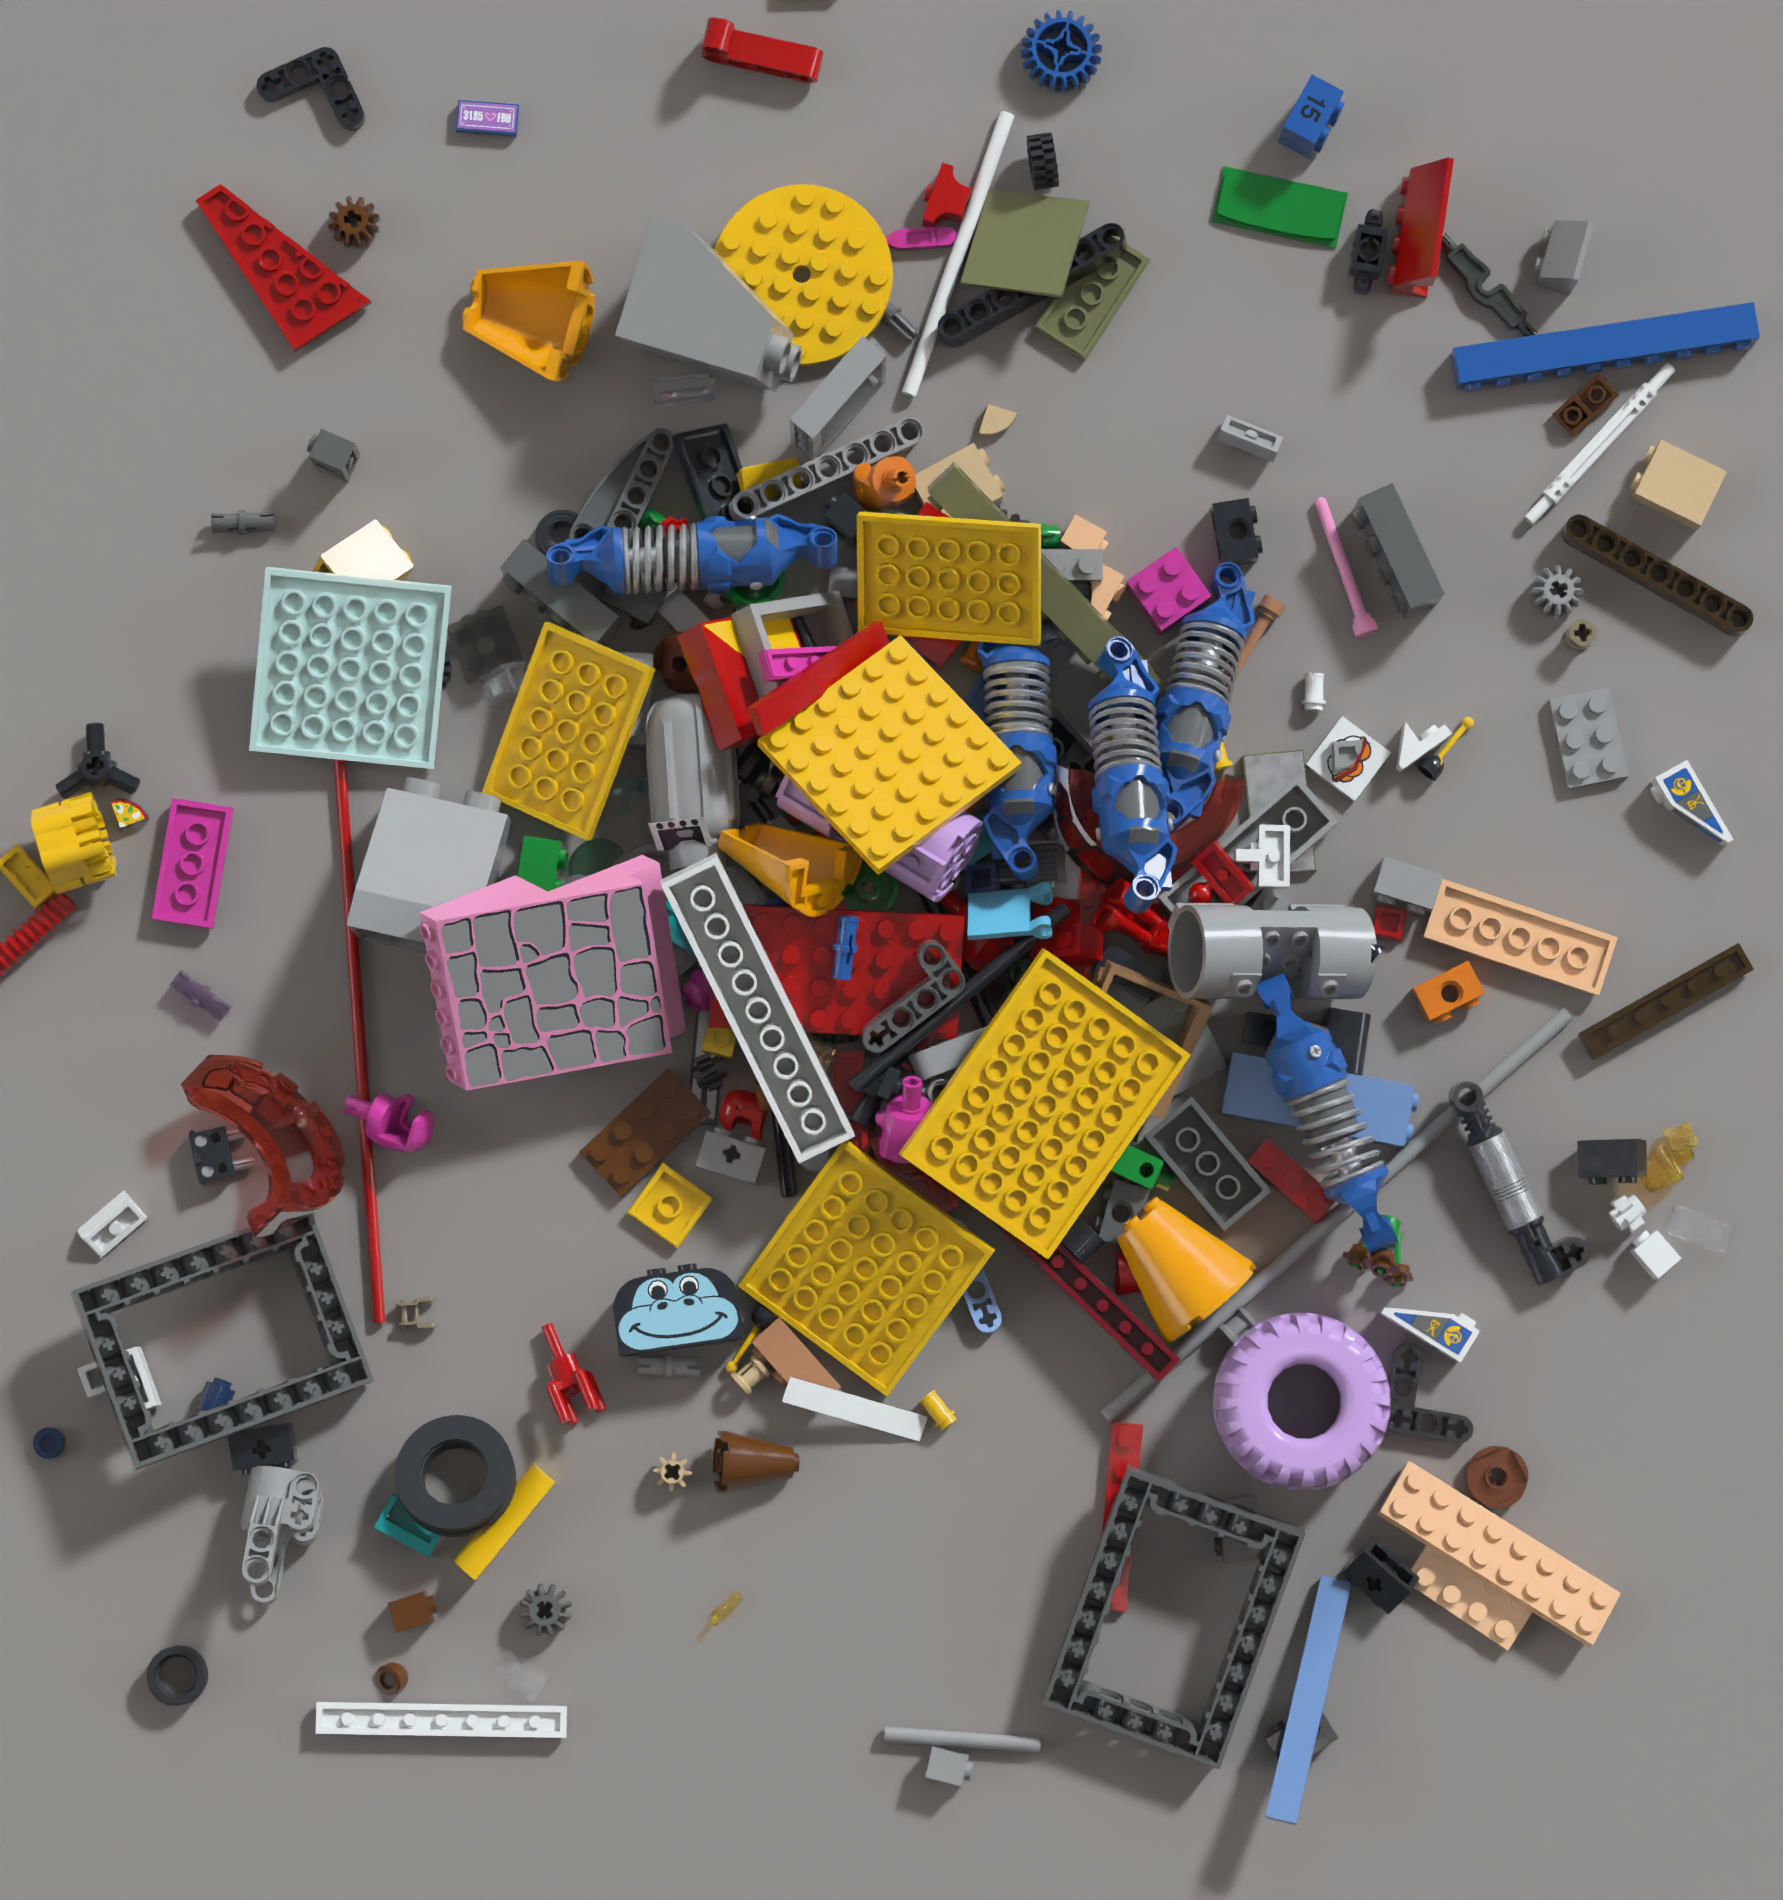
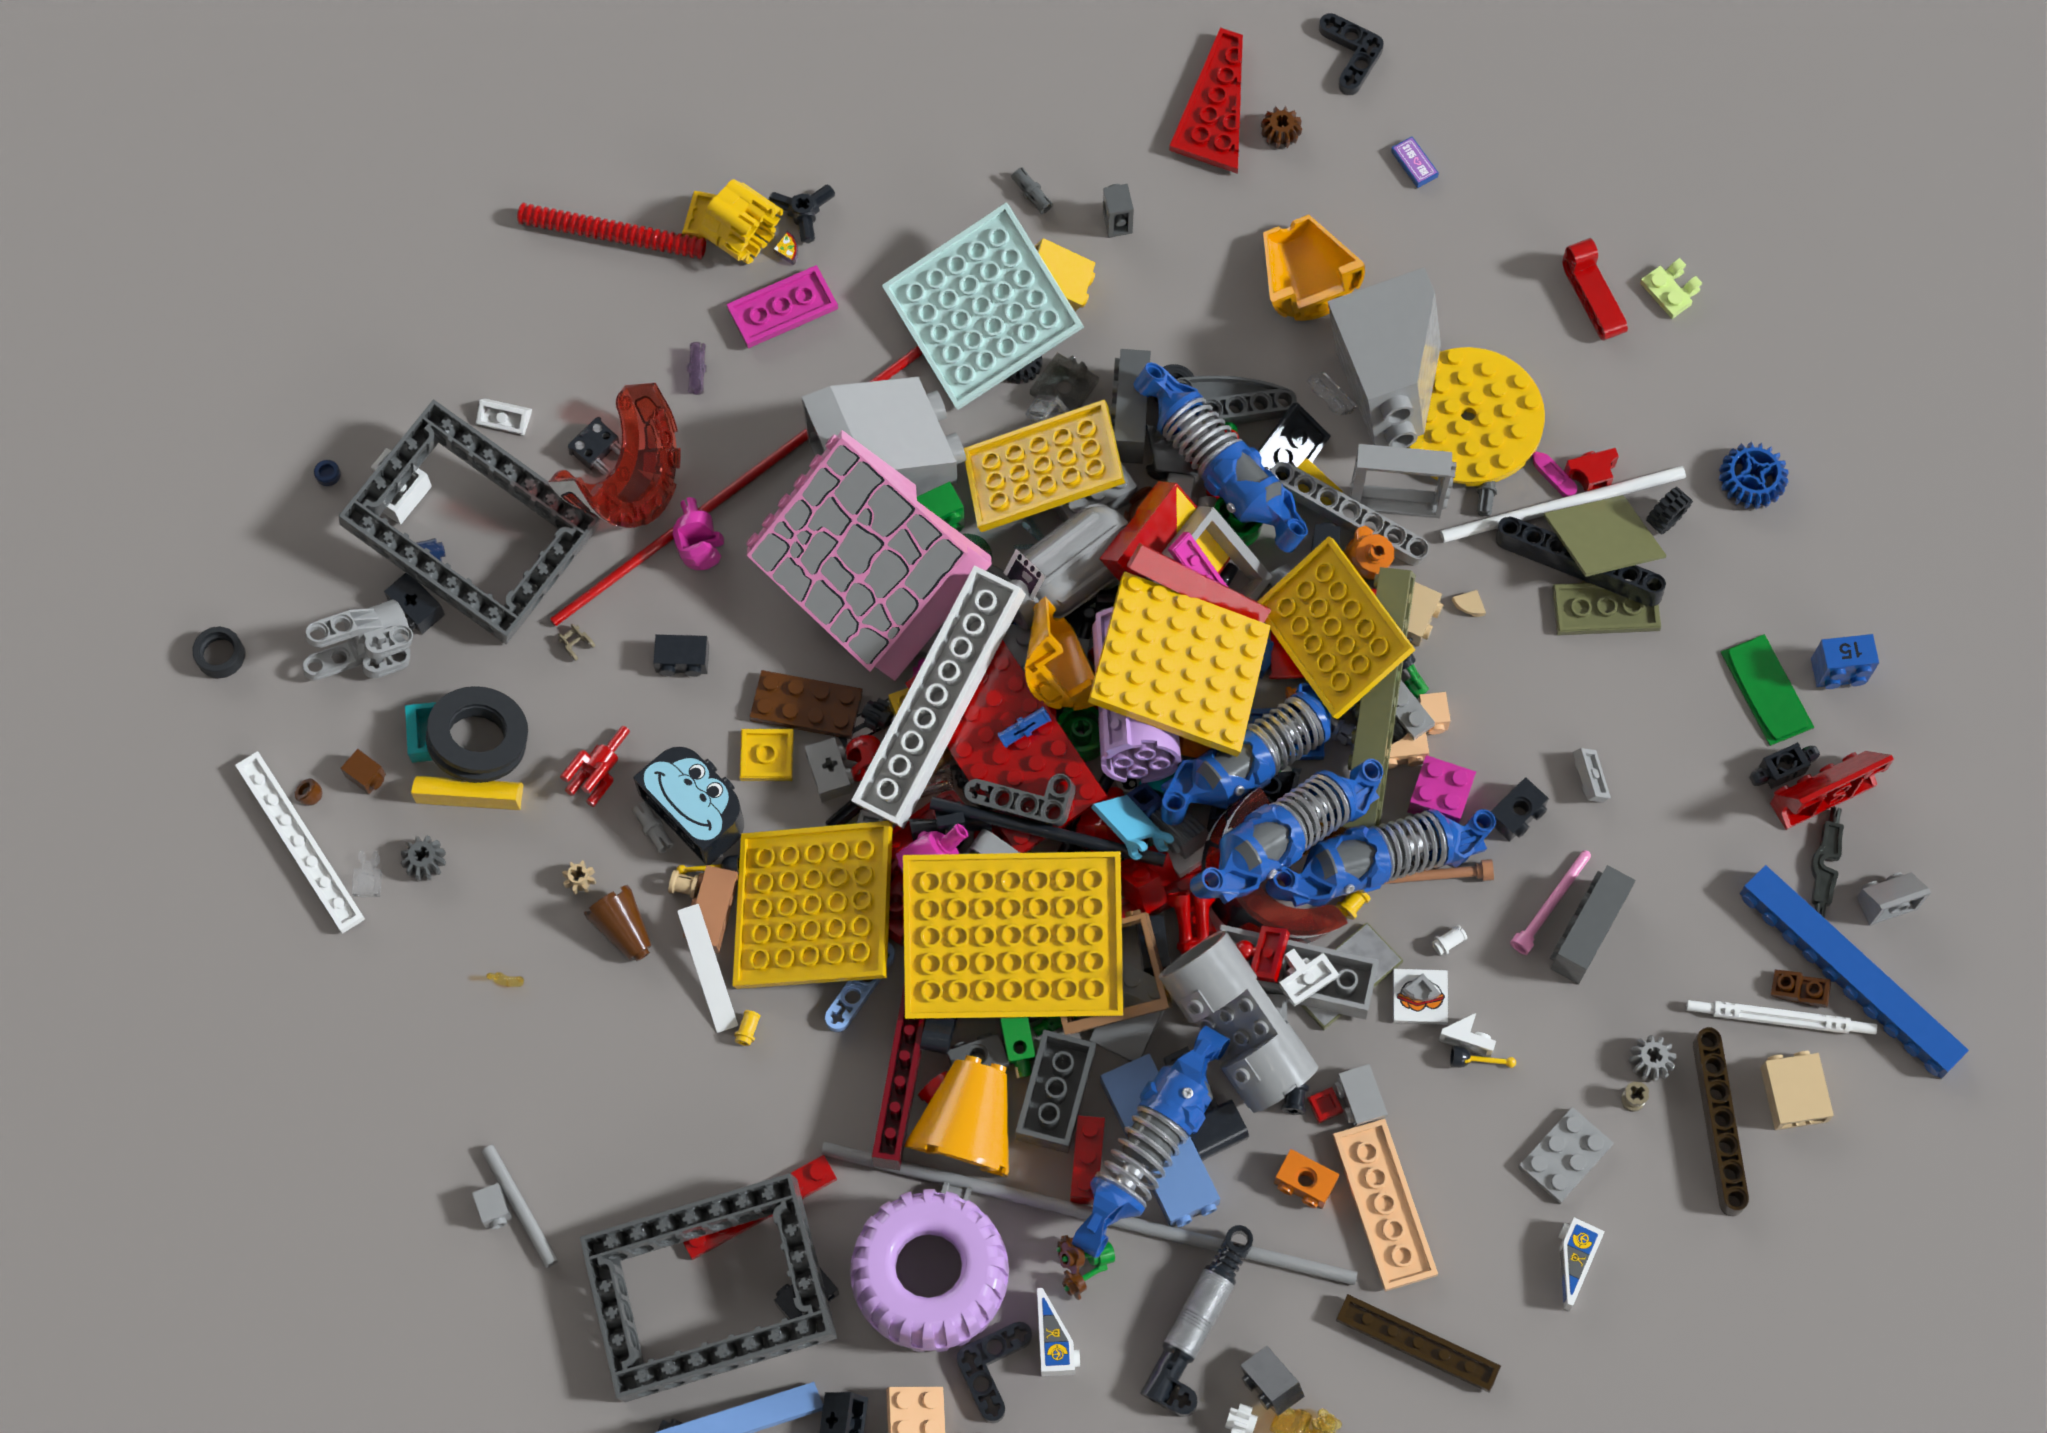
camera: 60 degrees right, 15 degrees down
(508, 1219) = (681, 654): none -> black brick

